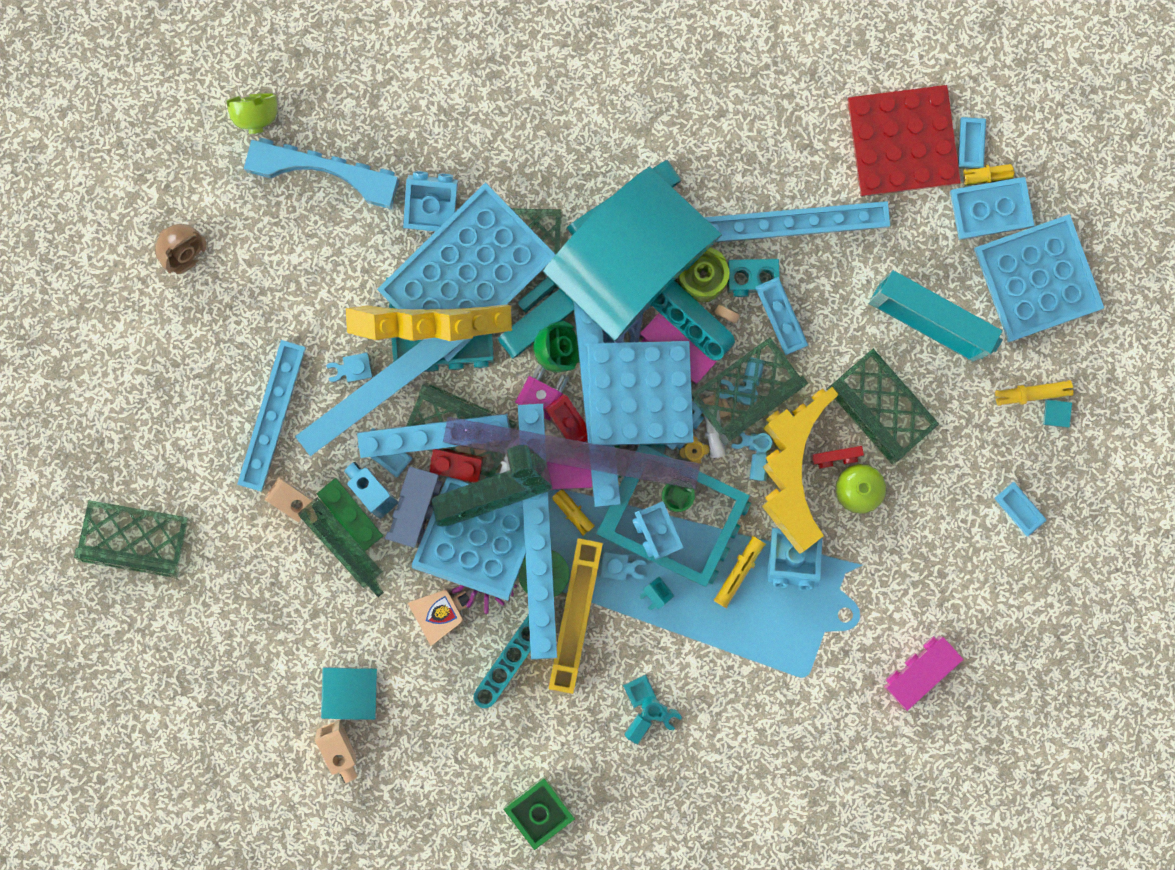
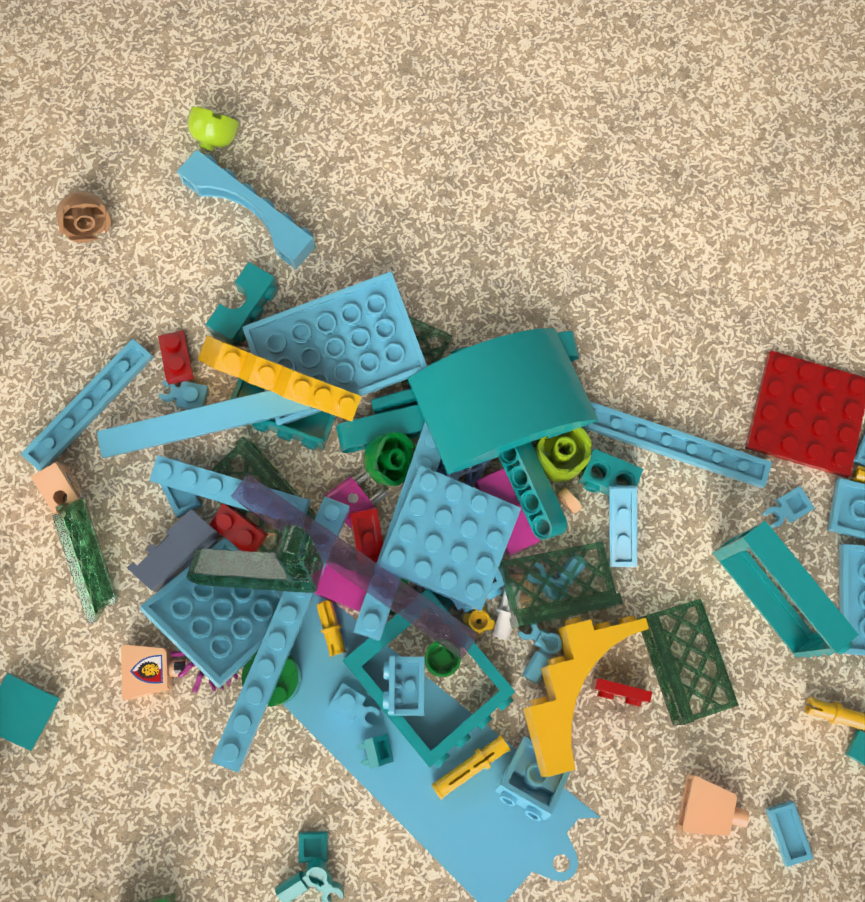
camera: 20 degrees right, 10 degrees down
(326, 339) = (175, 357): none -> red plate
(349, 514) = (113, 531): green plate -> none
(362, 287) = (258, 288): none -> teal arch
(375, 496) = (142, 517): medium azure torso -> none
(429, 200) = (331, 271): medium azure plate -> none
(505, 663) = (190, 754): teal beam -> none
(575, 615) = (282, 738): yellow arch -> none
(860, 488) = (631, 736): lime cylinder -> none
(920, 232) = (791, 505): none -> medium azure plate
(947, 518) = (709, 809): none -> light nougat torso

